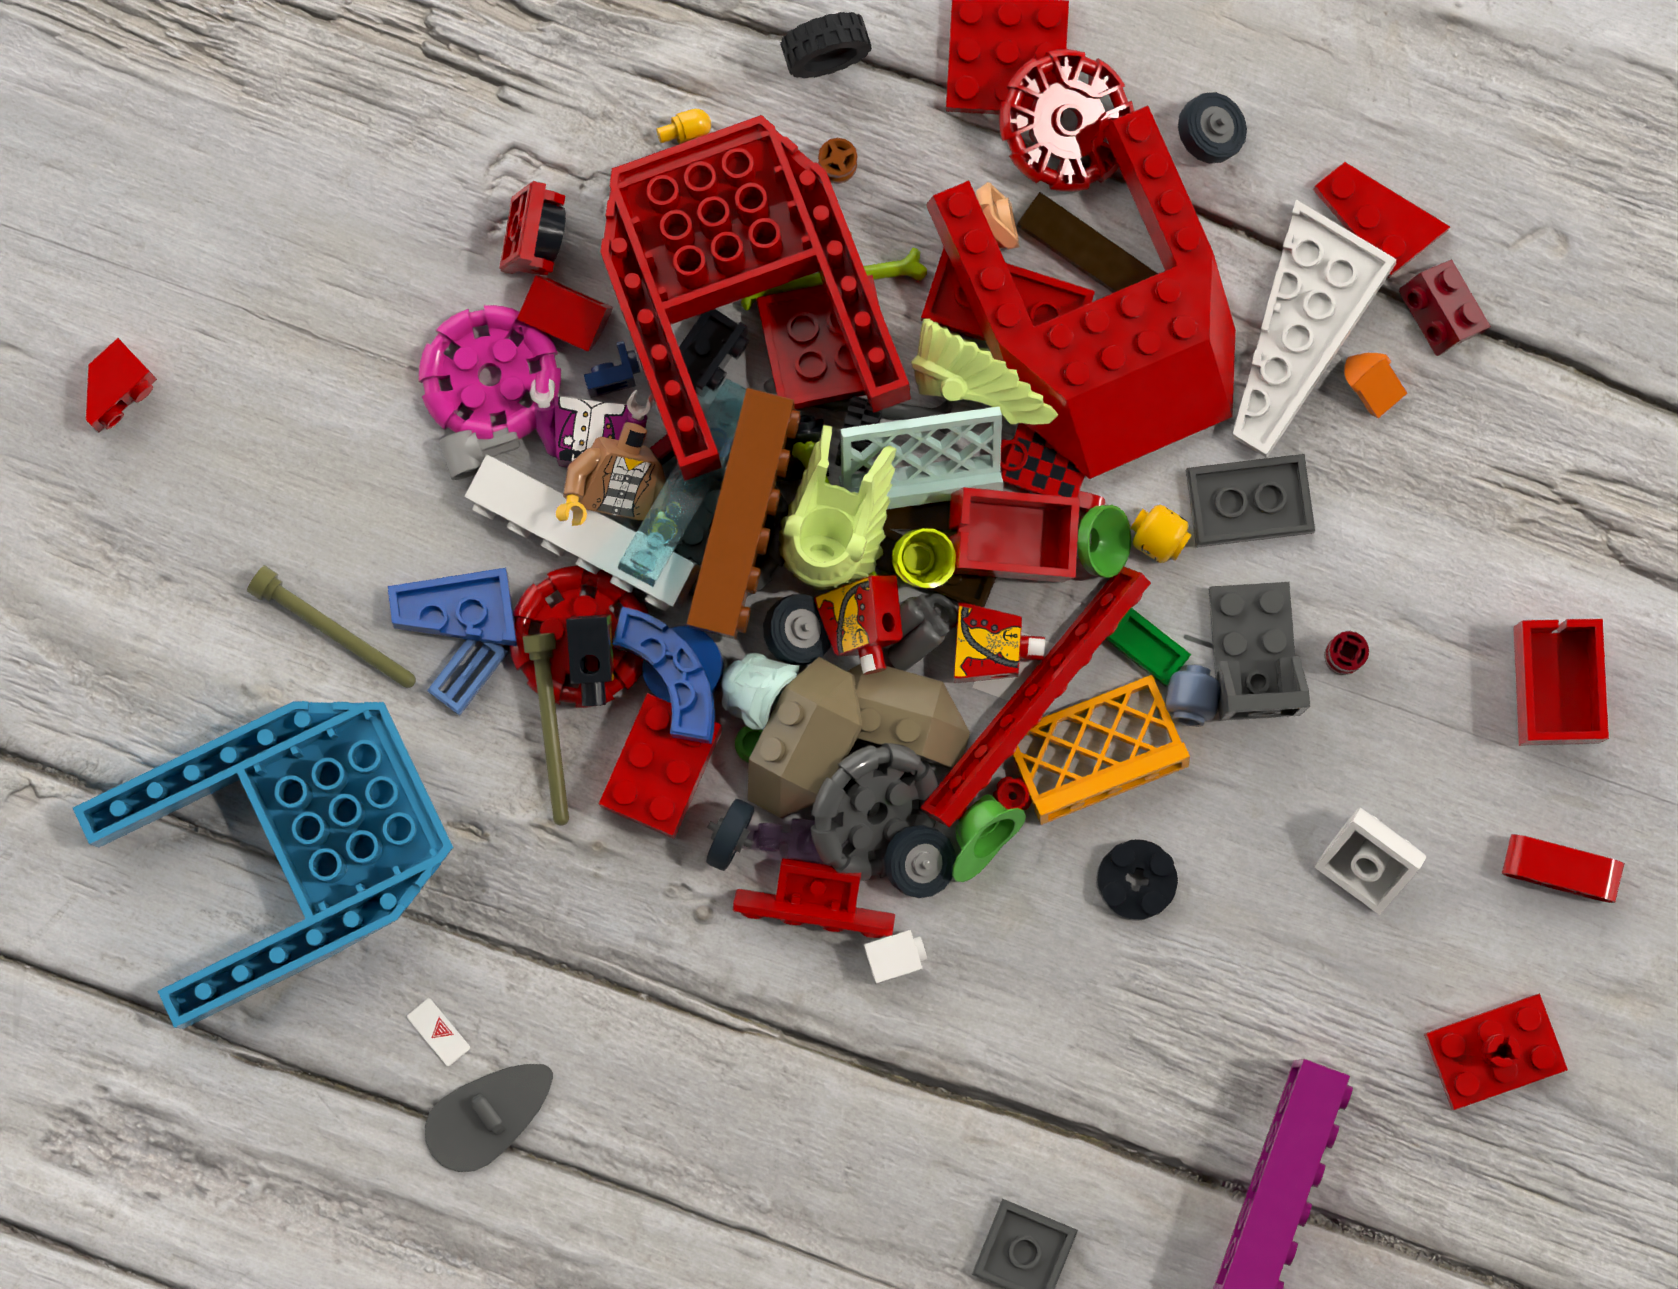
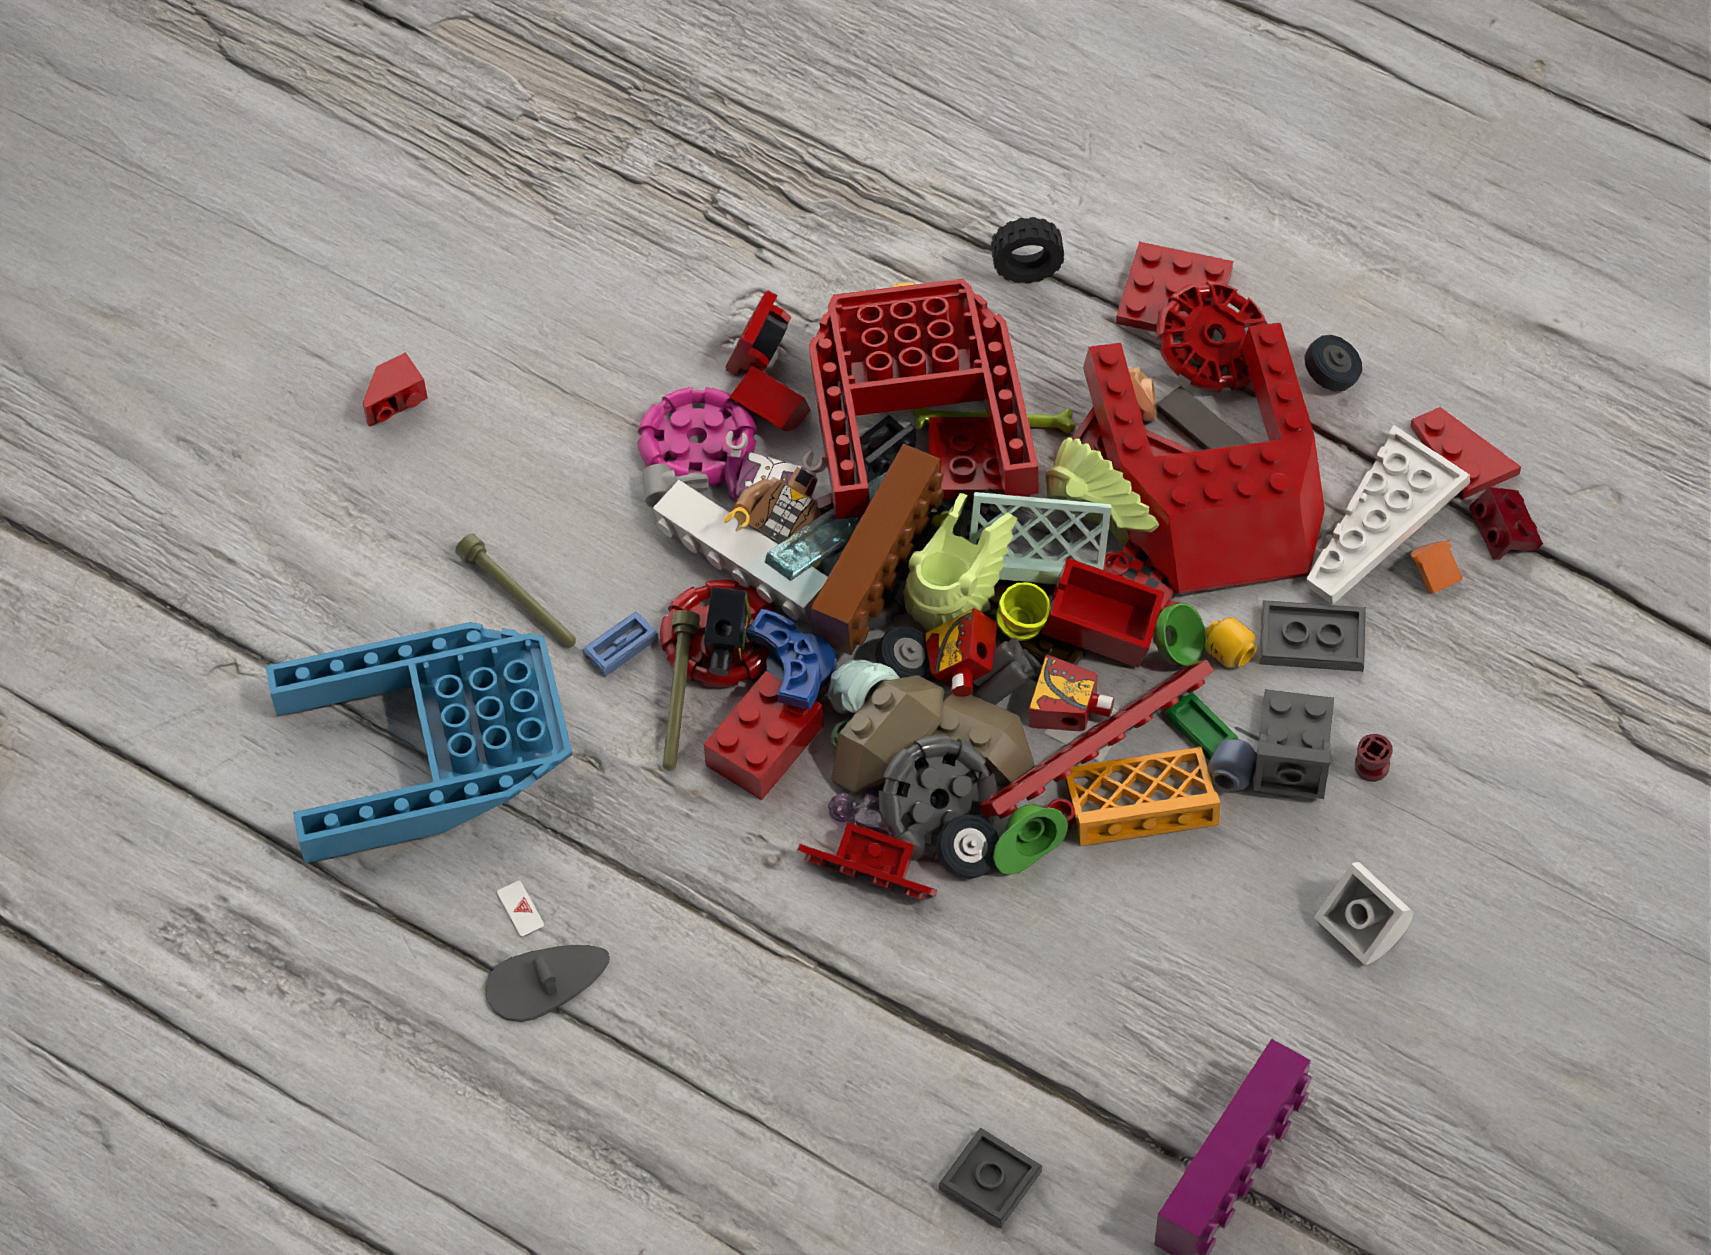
camera: 15 degrees right, 25 degrees down
(457, 606) = (626, 591): blue wing -> none
(609, 378) = (794, 450): dark blue bracket -> none
(730, 834) = (809, 792): black wheel -> none
(835, 152) = (1025, 331): dark orange wheel -> none
(895, 956) = (929, 916): white brick -> none
(1124, 860) = (1160, 882): black plate -> none
(1495, 1051) = (1450, 1096): red plate -> none
(1560, 682) = (1557, 810): red piece -> none
(1563, 868) = (1536, 957): red beam -> none

